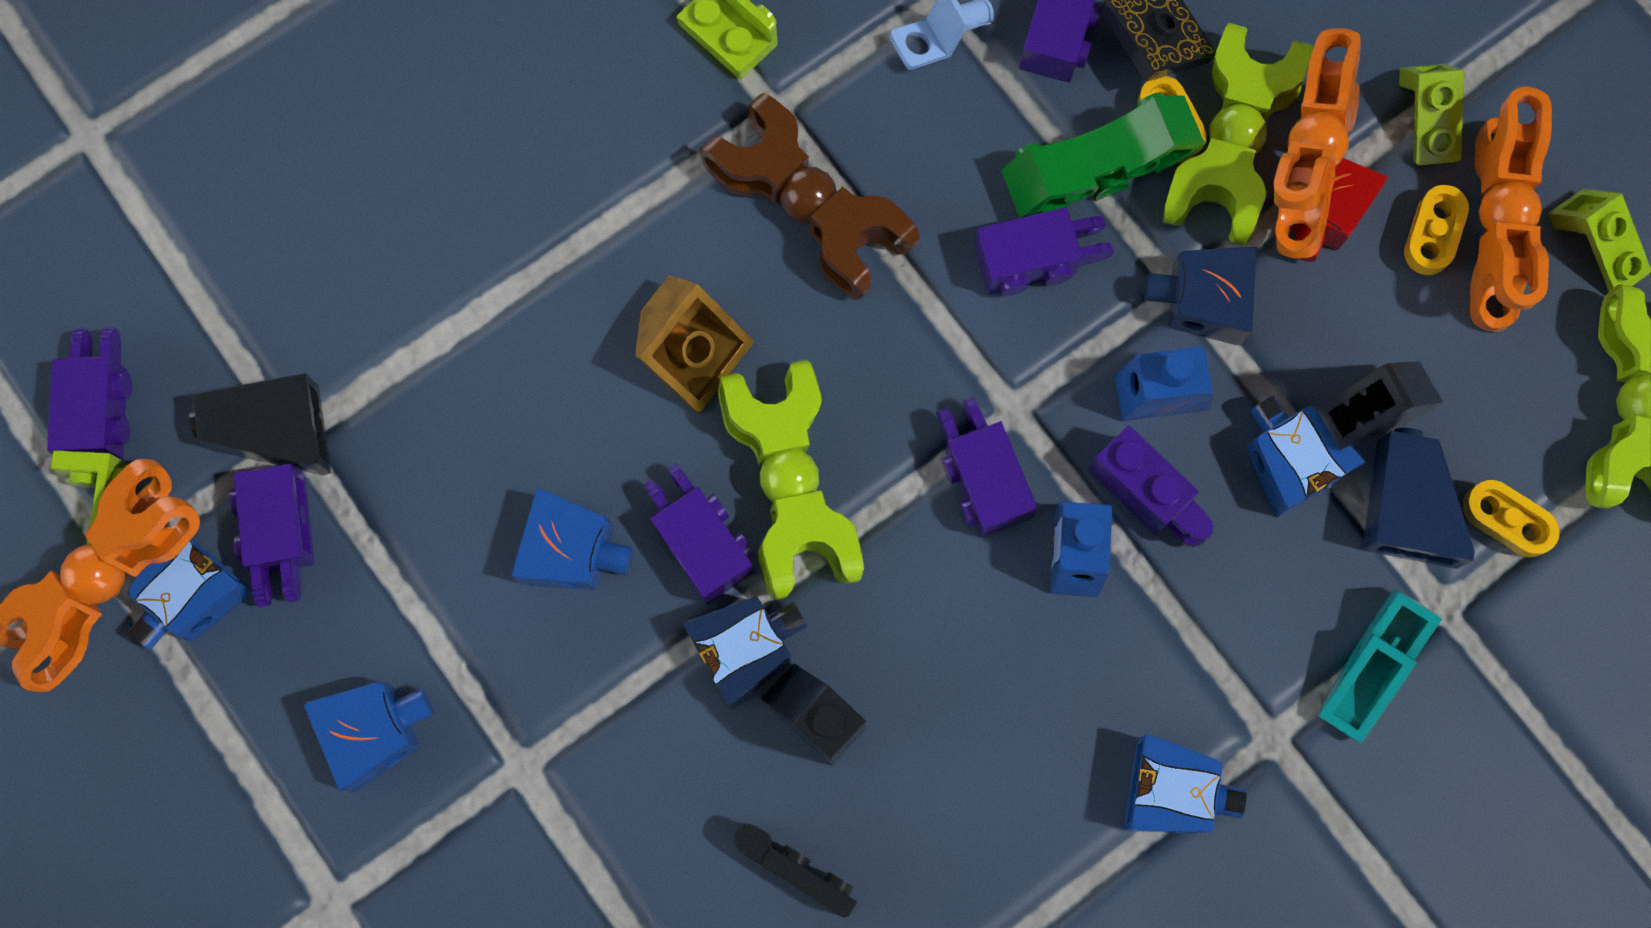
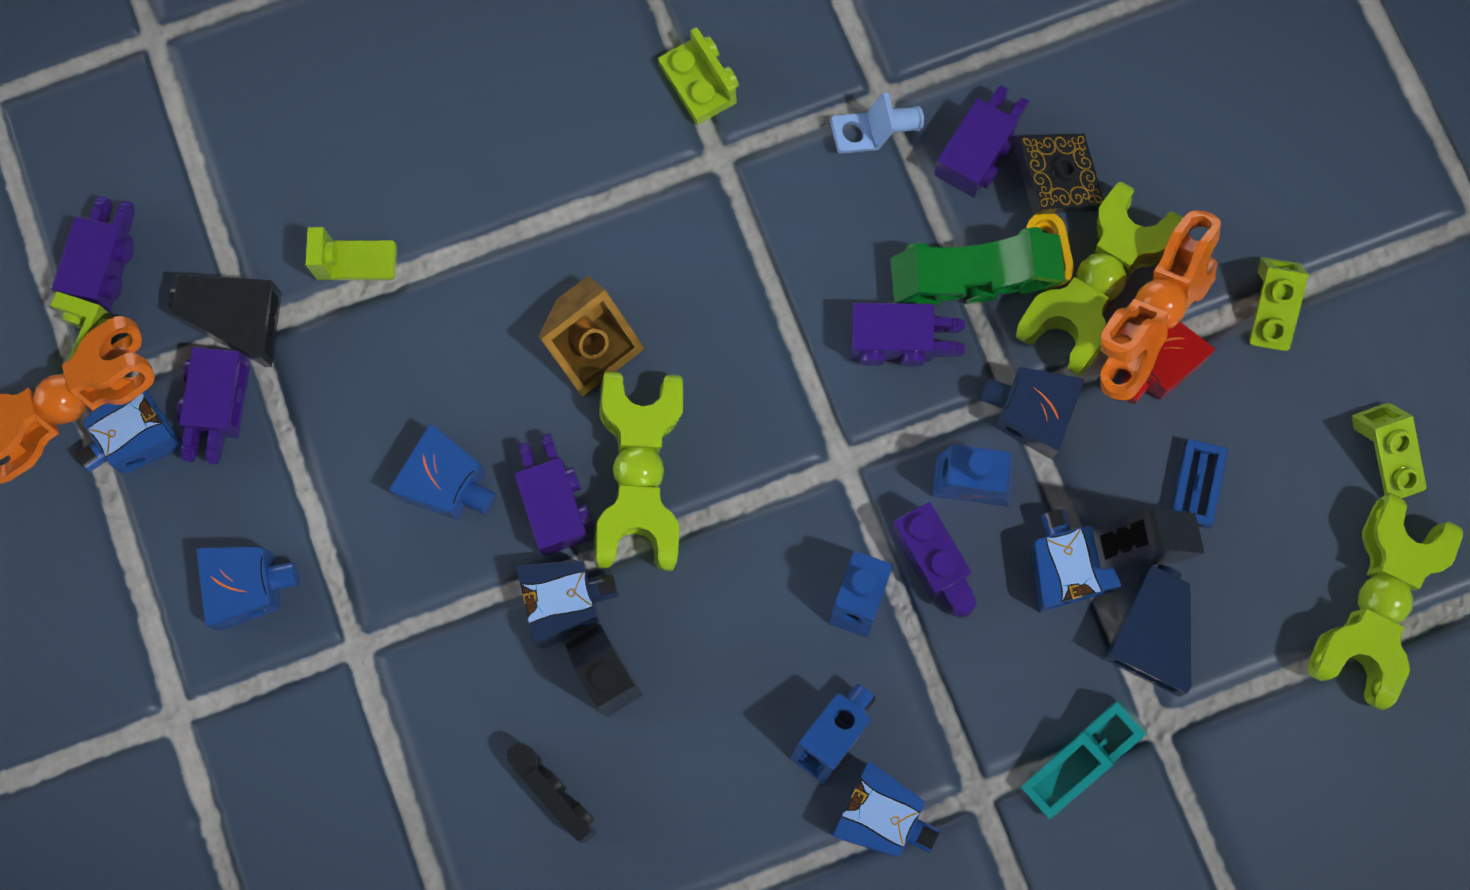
camera: 20 degrees right, 0 degrees up
(388, 327) = (349, 259): none -> lime bracket
(809, 196) = (723, 239): reddish brown piece -> none
(986, 472) = (803, 509): dark purple hinge -> none
(1097, 715) = (825, 742): none -> blue torso
(1425, 321) = (1204, 449): none -> blue tile
(1436, 233) = (1246, 406): yellow plate -> none
(1508, 517) = (1235, 666): yellow plate -> none
(1511, 210) = (1313, 405): orange piece -> none

